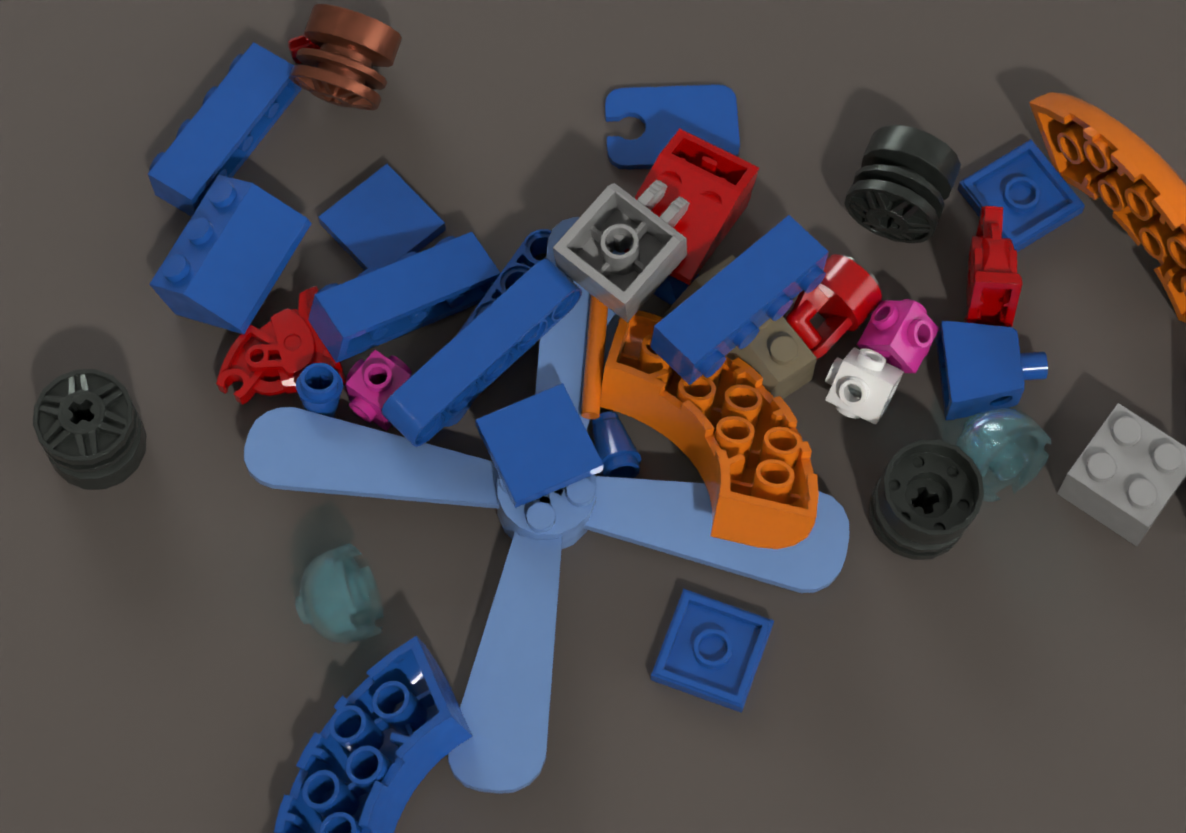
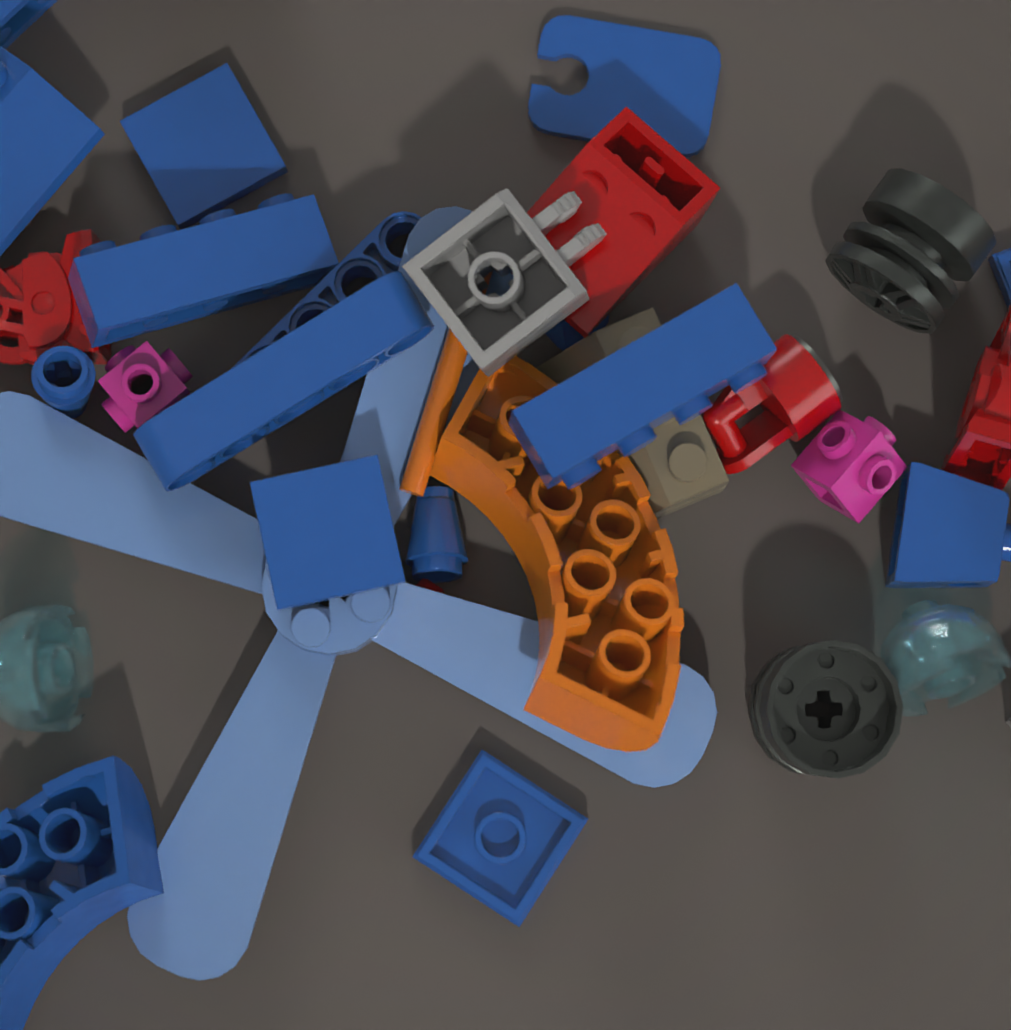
camera: 15 degrees right, 15 degrees up
(862, 384) = (784, 524): white brick -> none

